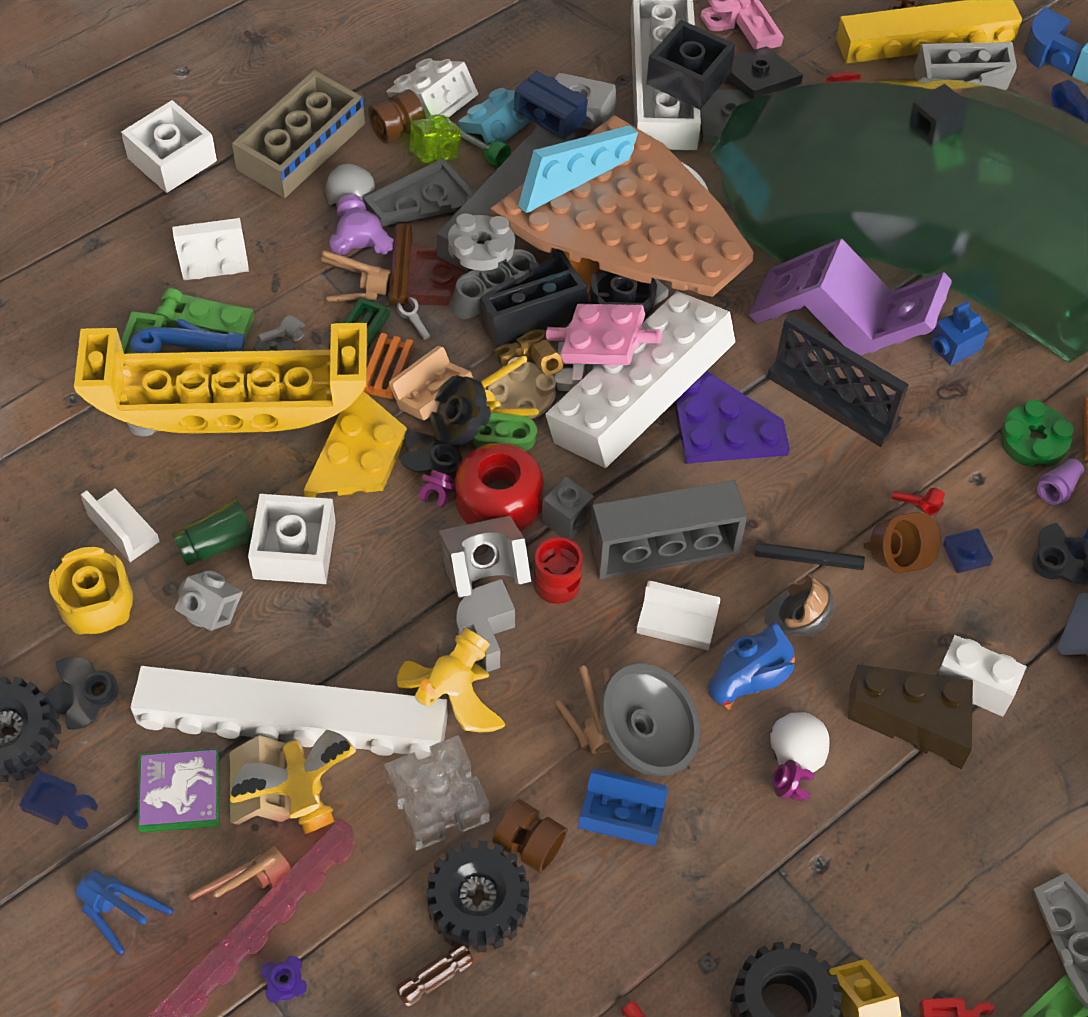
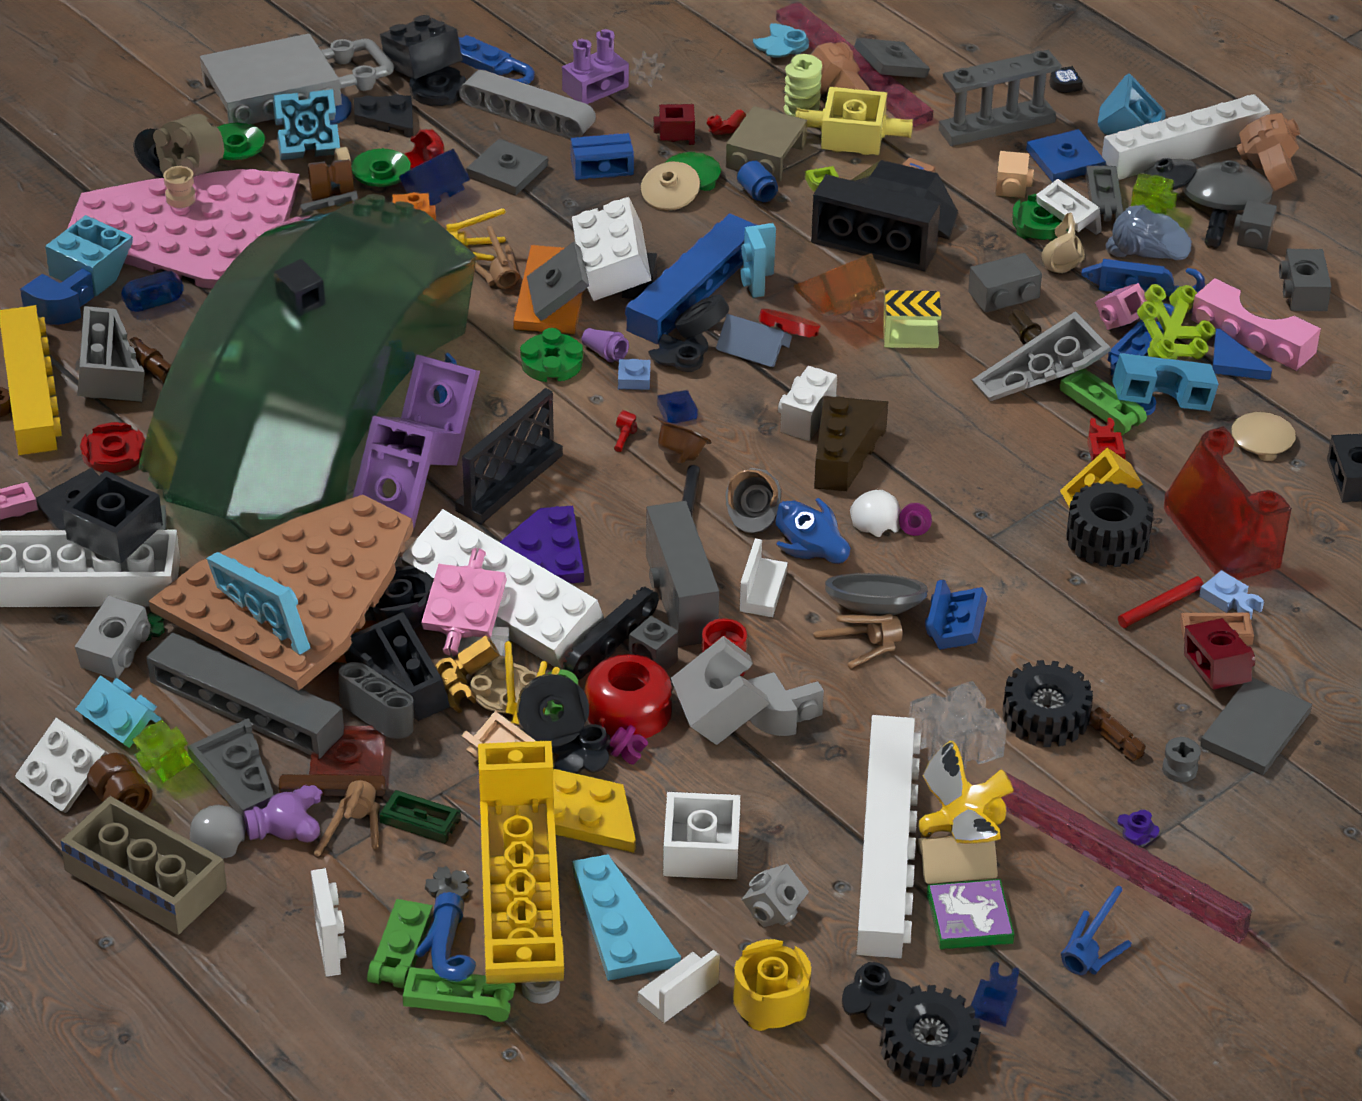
camera: 90 degrees left, 15 degrees down
(169, 146) = (154, 980): white brick -> none
(196, 482) = (621, 924): none -> medium azure wing
(214, 533) = (693, 898): dark green plant -> none
(264, 870) = (1045, 841): medium nougat plant -> none
(290, 326) = (423, 868): light grey hand -> none
(393, 345) = (457, 782): orange tile -> none
(413, 317) = (400, 771): light grey hand -> none
(454, 676) = (846, 712): yellow animal -> none
(493, 230) = (350, 677): light grey plate -> none
(494, 153) = (174, 711): green hinge -> none
(542, 842) = (991, 666): reddish brown wheel -> none
(550, 104) = (140, 640): dark blue brick -> none
(584, 469) = (611, 632): none -> black plate
(1018, 511) = (634, 374): none -> medium blue plate

